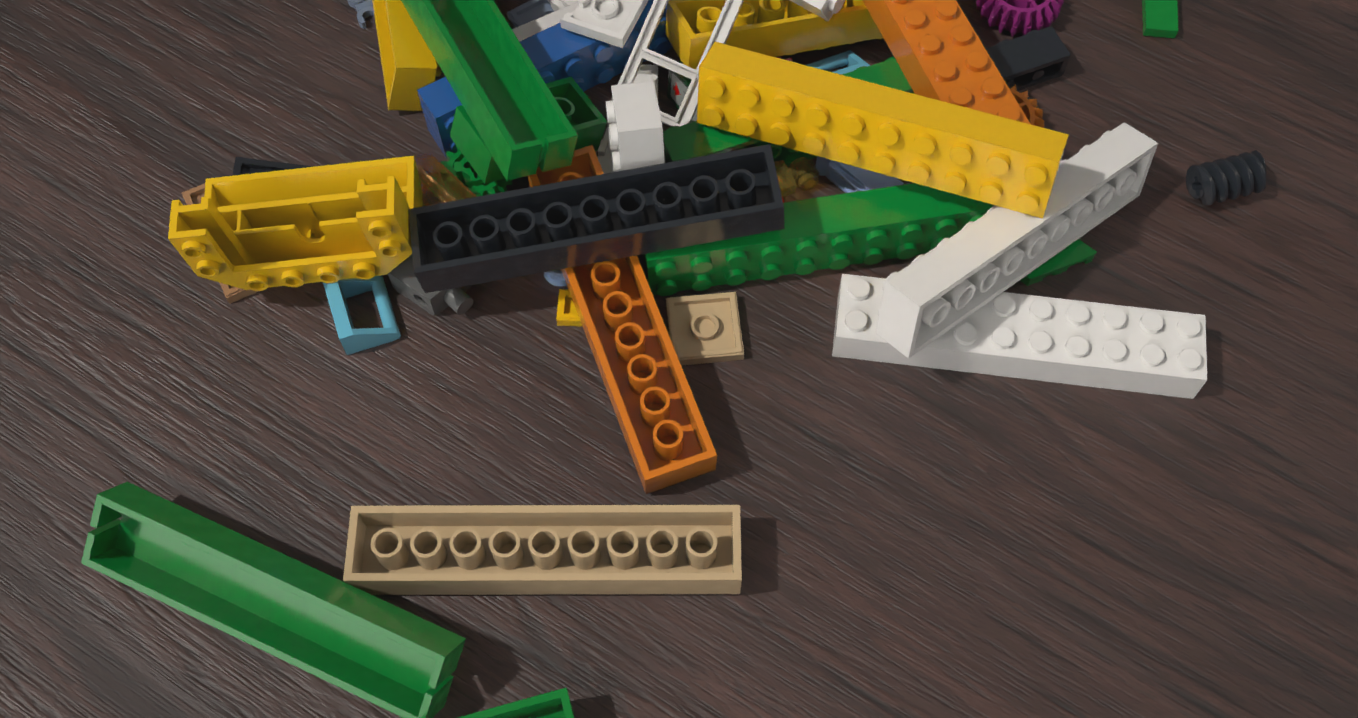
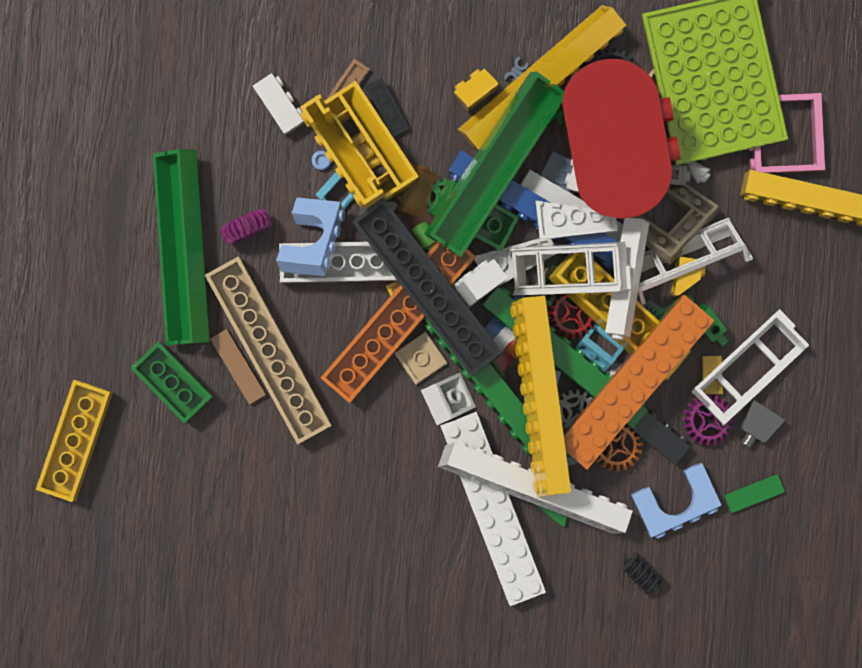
camera: 60 degrees right, 25 degrees up
(162, 328) = (279, 103): none -> white brick
(296, 316) = (320, 160): none -> light blue tile
(312, 472) = (245, 226): none -> magenta gear
(349, 53) = (475, 89): none -> yellow slope
(431, 376) = (316, 257): none -> light blue arch
(467, 370) = (348, 264): none -> white brick
(542, 626) = (238, 366): none -> medium nougat tile
(796, 318) = (448, 398): none -> white slope
(1143, 56) = (703, 500): none -> light blue arch

